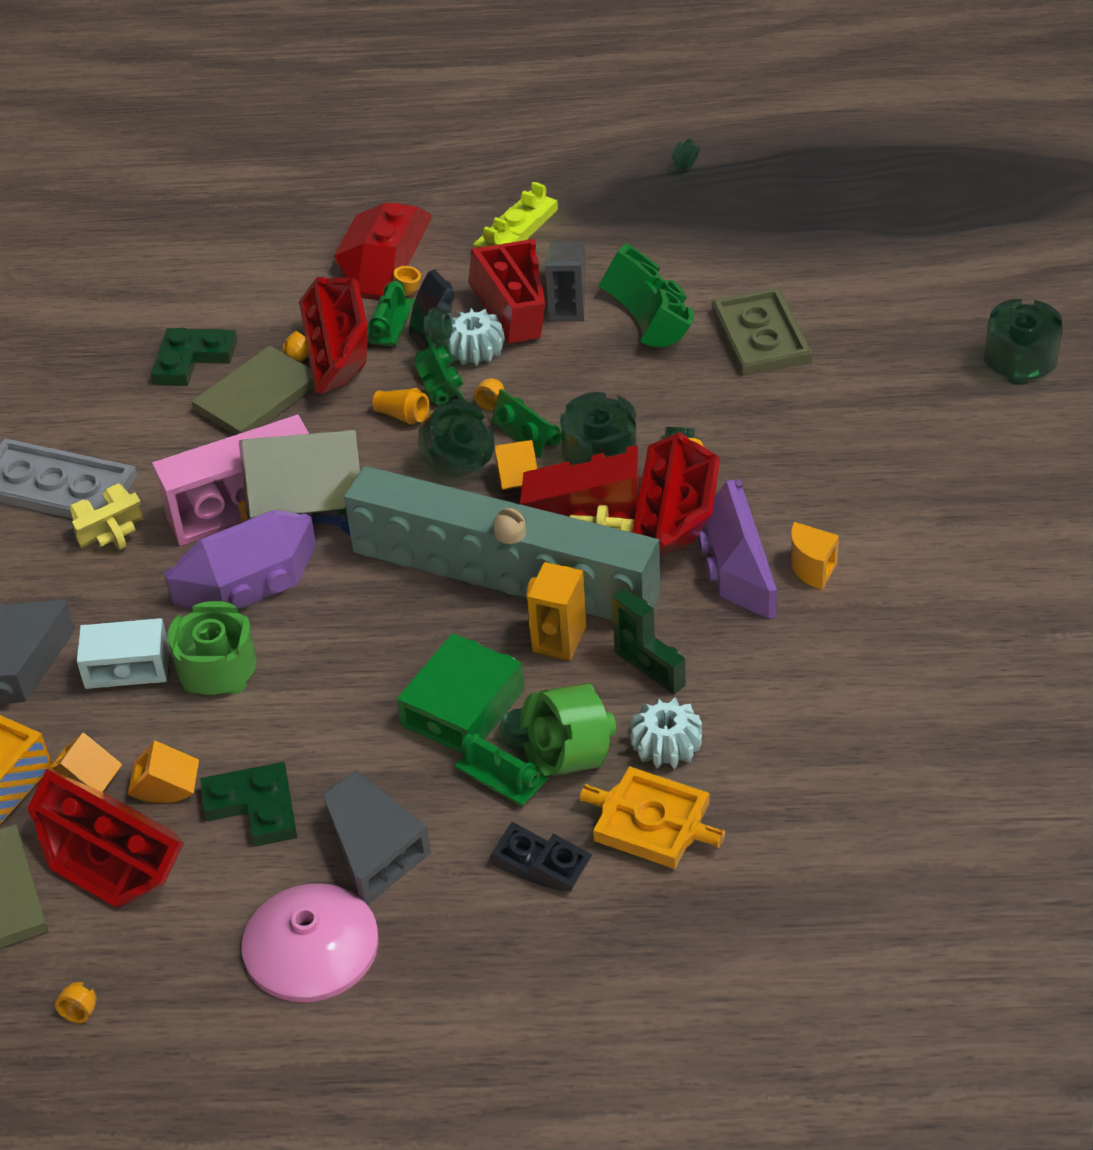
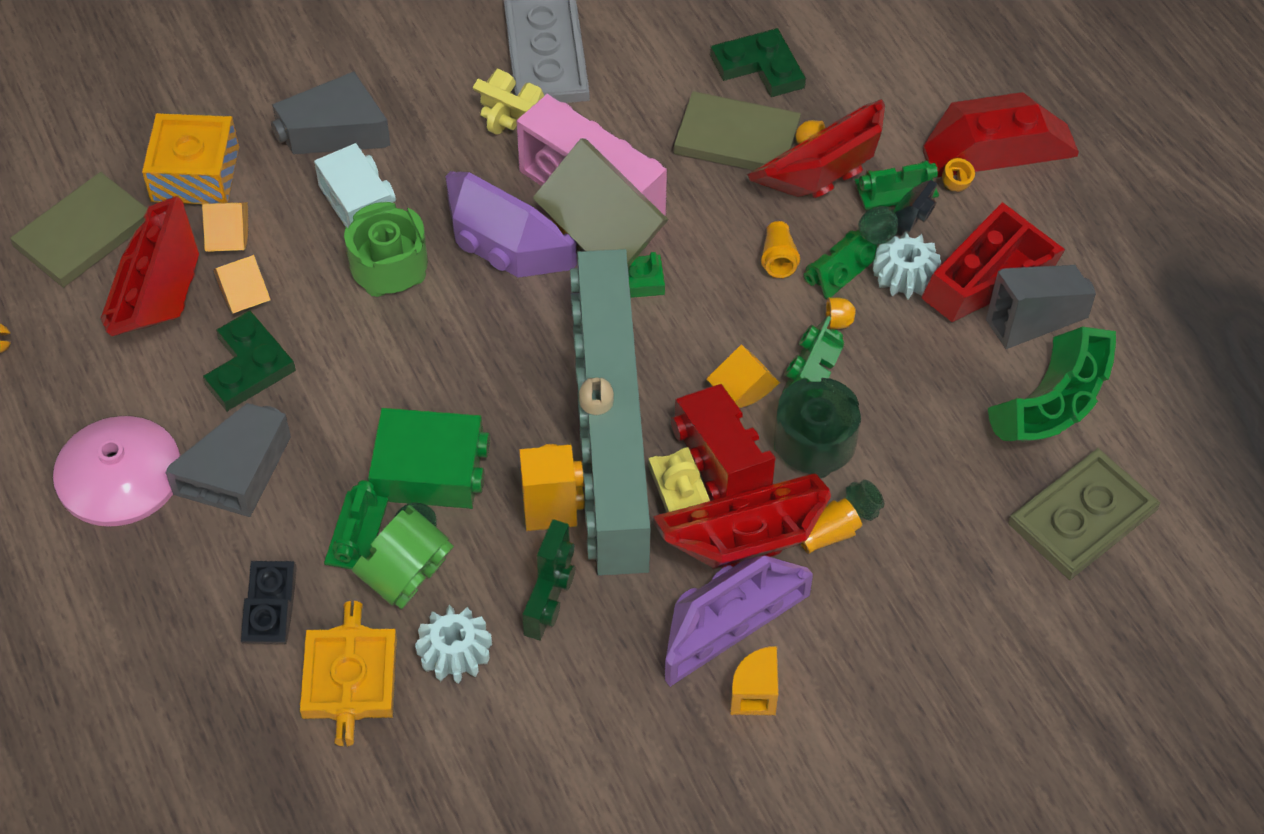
camera: 60 degrees right, 10 degrees up
(455, 439) = (738, 310): clear green cylinder -> none
(520, 220) = (1109, 229): neon yellow plate -> none
(1023, 340) = (1209, 776): clear green brick -> none

